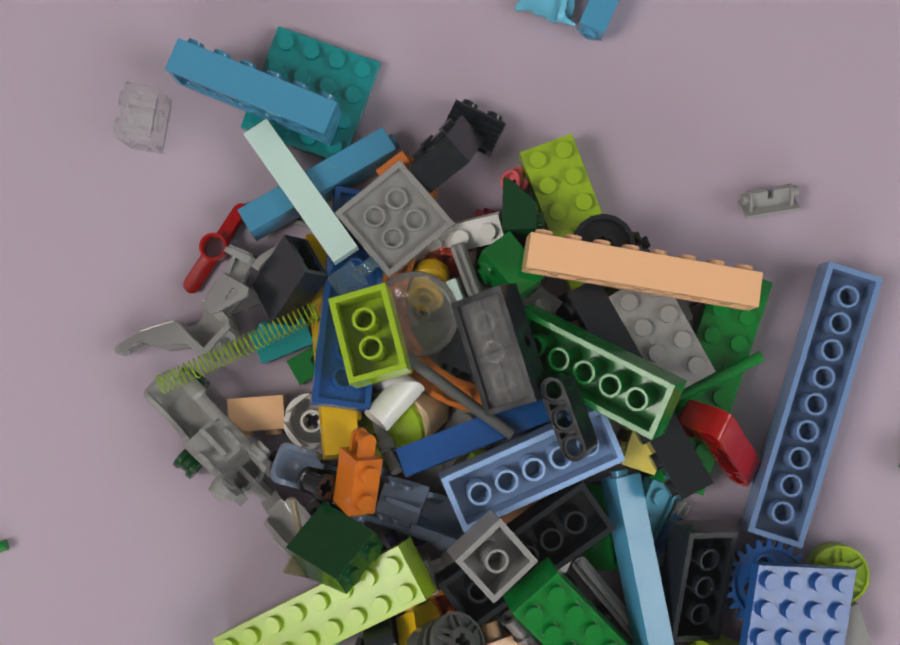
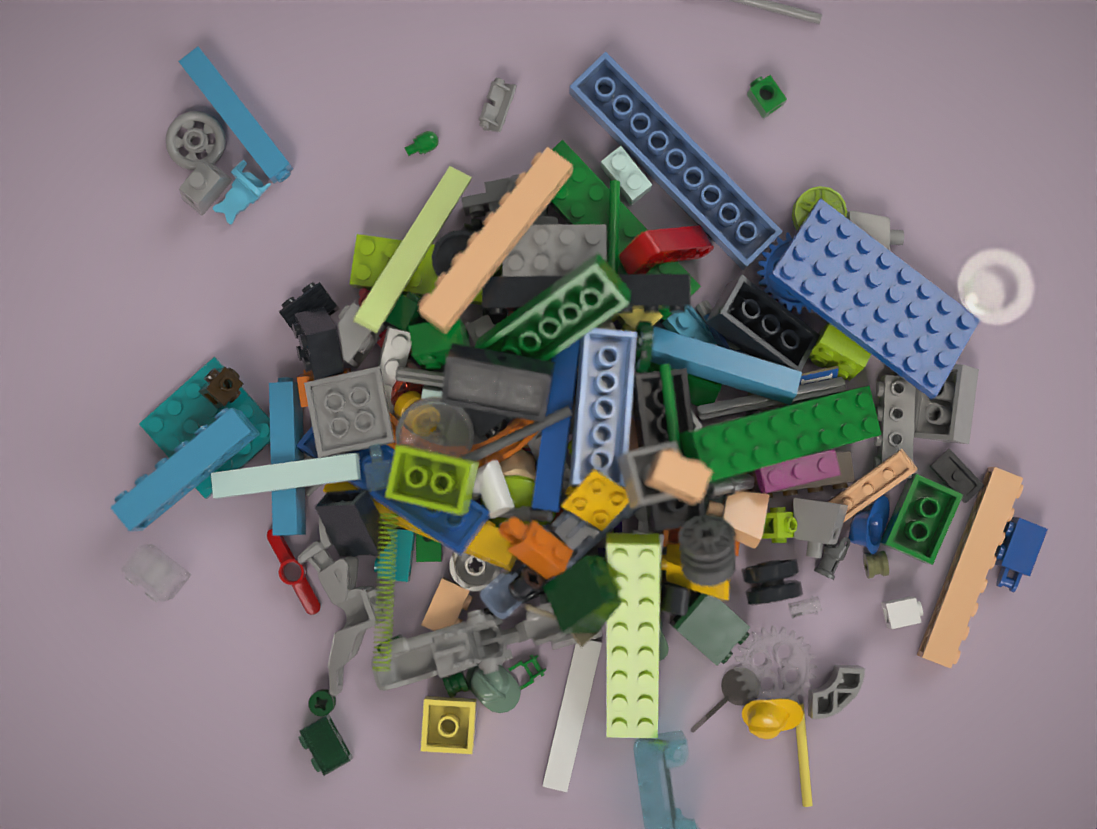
camera: 60 degrees left, 0 degrees up
(65, 368) = (325, 745): none -> clear green brick
(108, 344) = (325, 700): none -> dark green wheel
(144, 477) = (448, 725): none -> light yellow brick
(200, 507) = (494, 690): none -> sand green piece
(215, 592) = (571, 716): none -> white tile
(244, 537) = (540, 671): none -> green piece
(347, 77) = (221, 386): none -> dark brown brick
(437, 509) = (596, 499): none -> yellow hinge
(475, 186) = (355, 338): none -> light grey slope
(504, 585) = (678, 476): none -> light nougat brick
(566, 431) = (588, 351): black beam -> none
(571, 532) = (670, 407): none -> green bar
(584, 194) = (412, 250): none -> yellowish green tile
(615, 475) = (643, 346): none -> dark green tile
(664, 234) = (478, 204): none -> dark grey piece
(692, 150) = (423, 143): none -> green cylinder
(777, 356) = (622, 168): none -> light aqua brick

